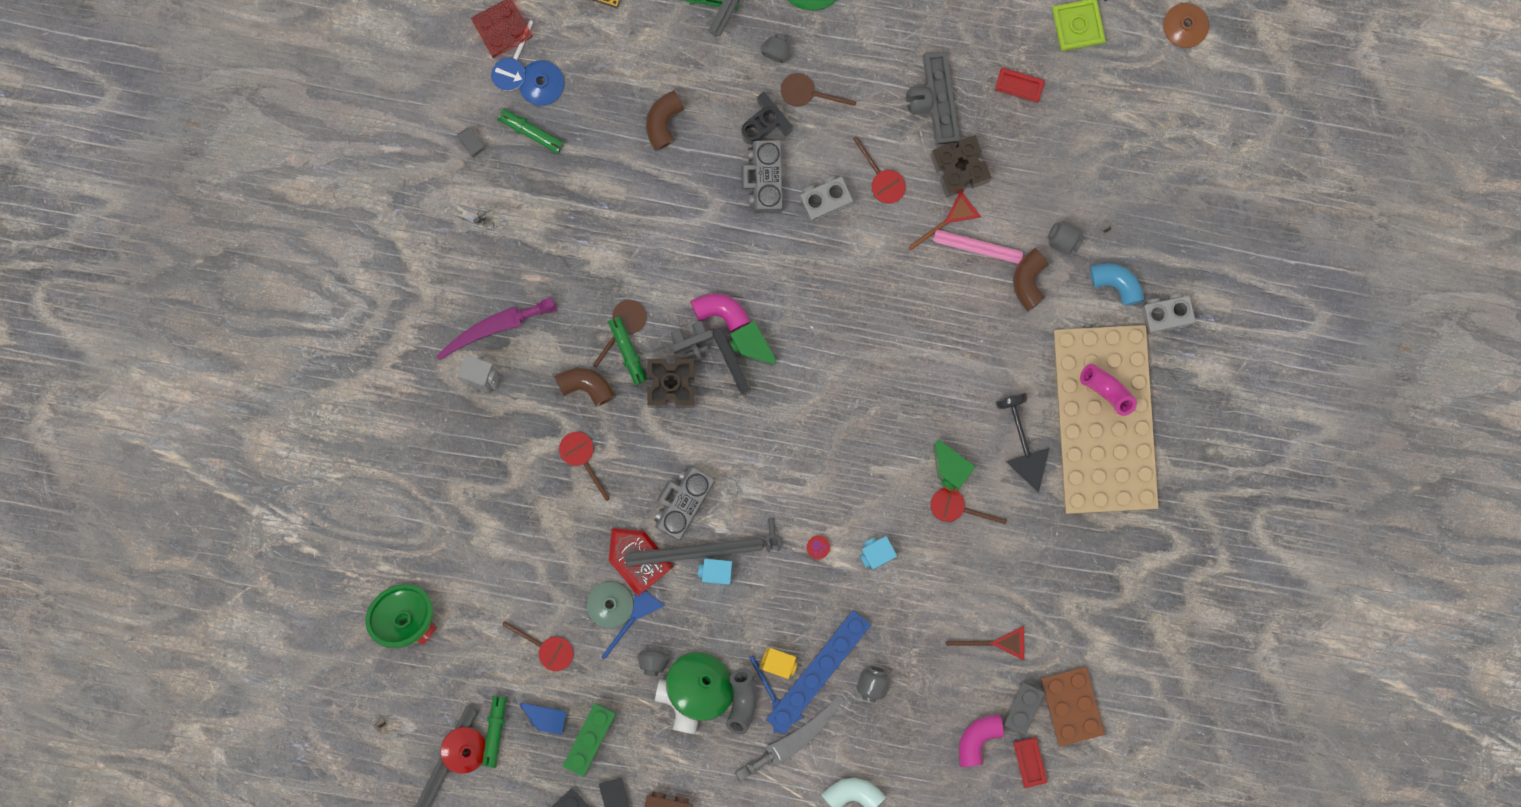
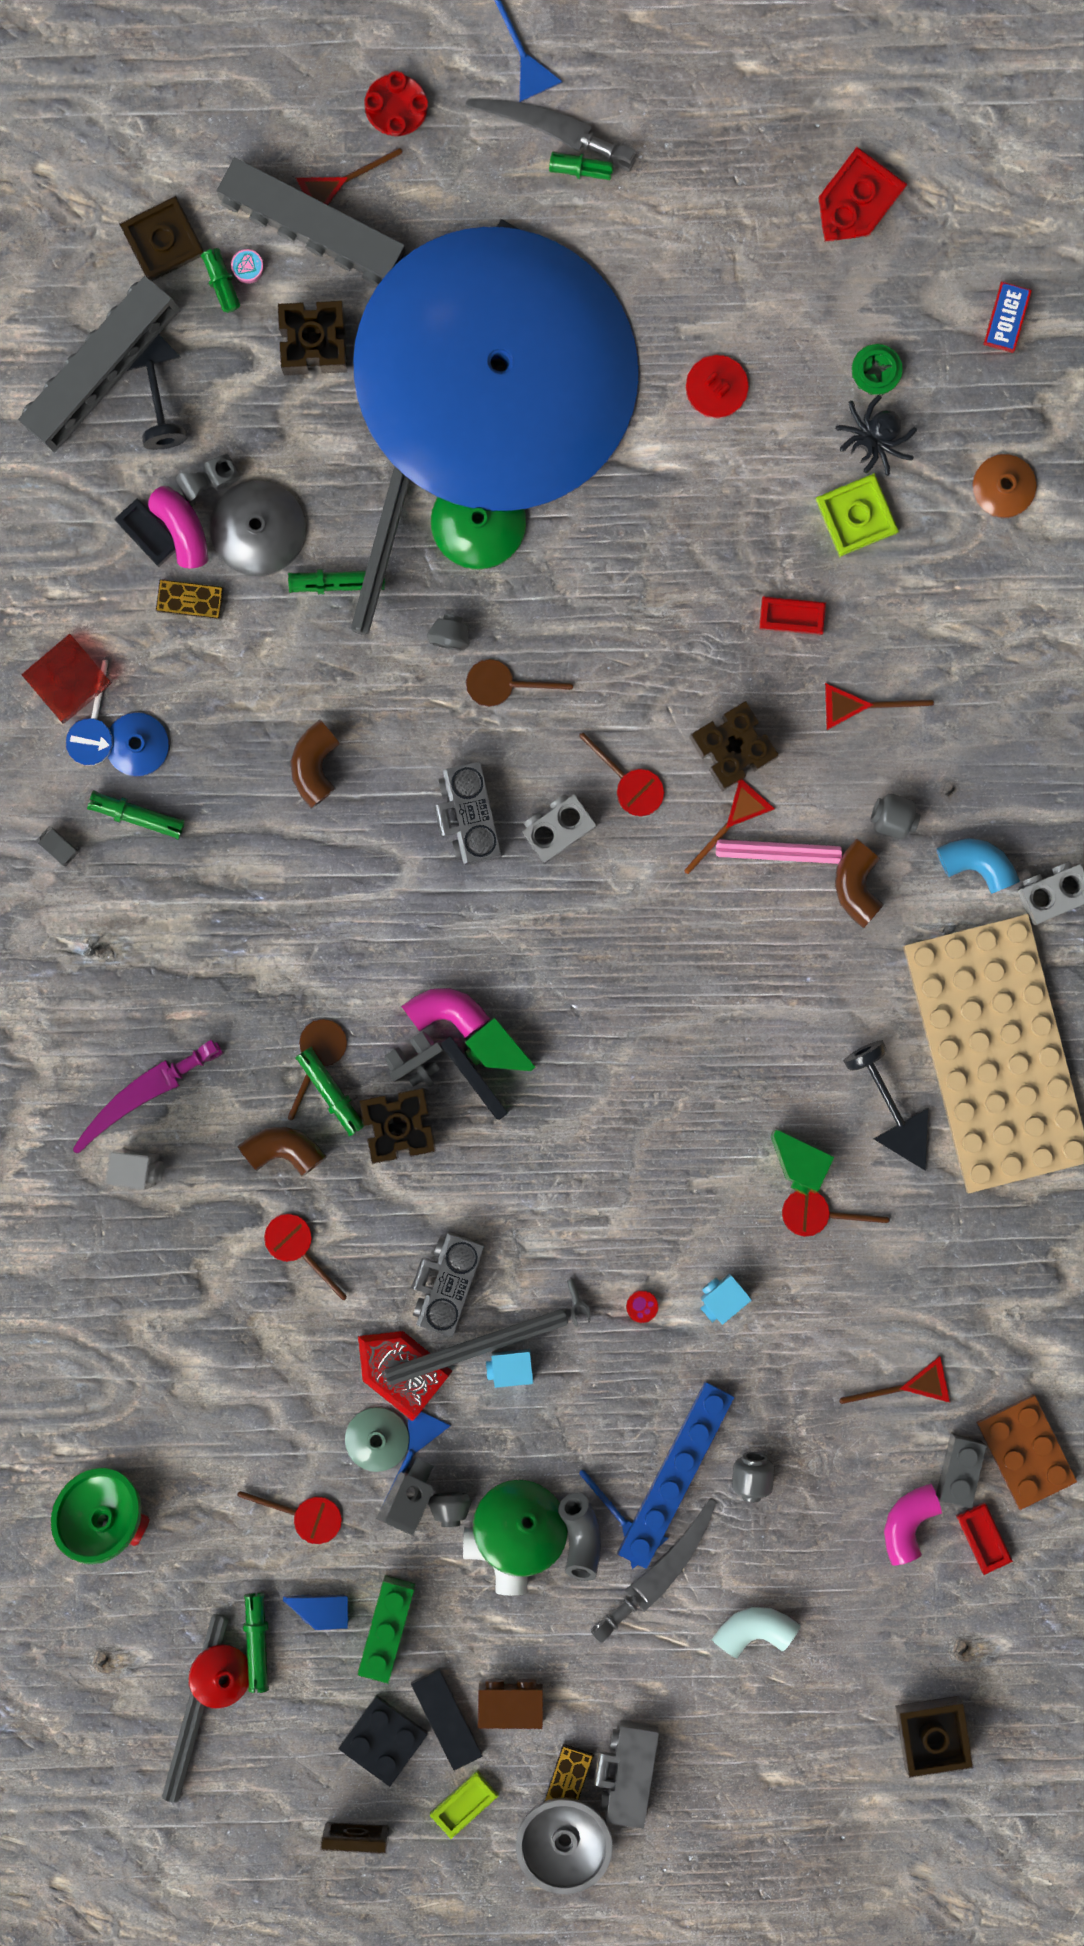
camera: 10 degrees left, 5 degrees up
(617, 656) = (404, 1512): none -> dark grey torso
(763, 127) = (450, 745): black tile -> none
(778, 663) = (619, 1475): yellow brick -> none
(936, 98) = (682, 658): dark grey plate -> none
(1043, 155) = (843, 705): none -> piece
(1109, 388) = (996, 1014): dark pink cylinder -> none

